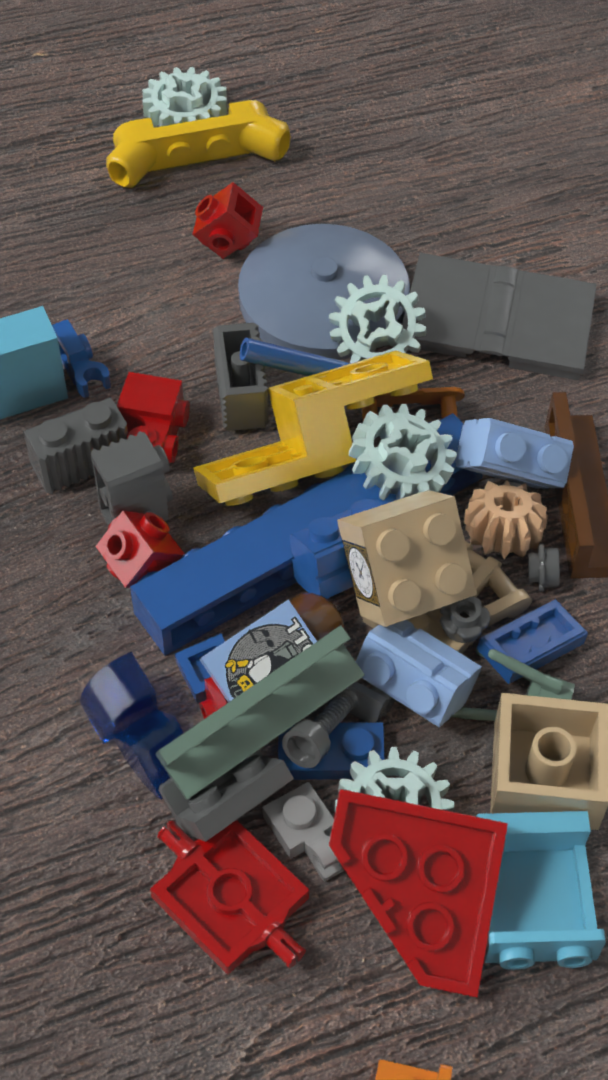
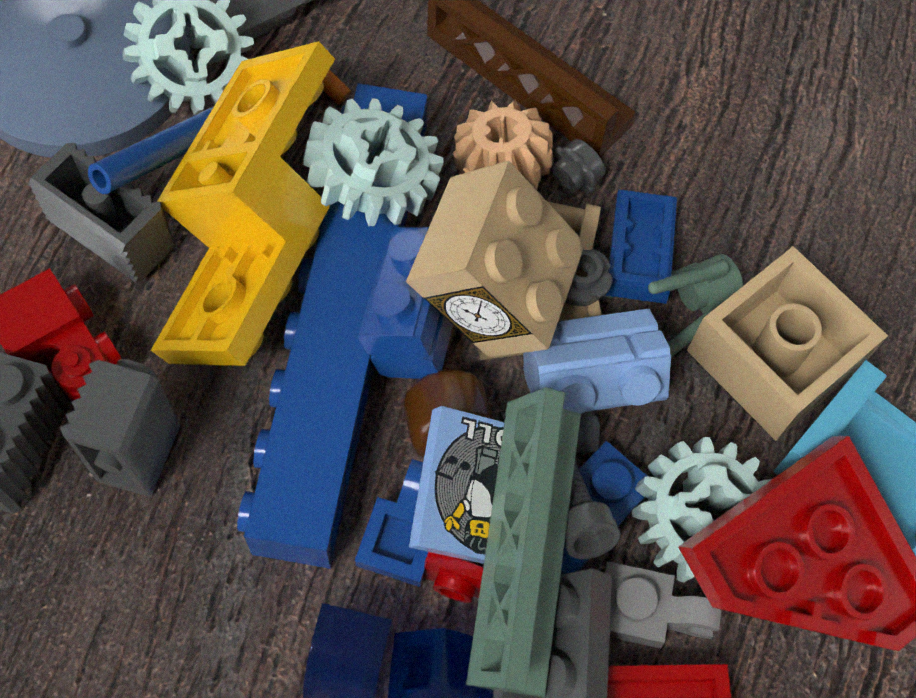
camera: 50 degrees left, 10 degrees up
(137, 546) = (199, 486): red brick -> none
(514, 453) = (463, 77): light blue brick -> none

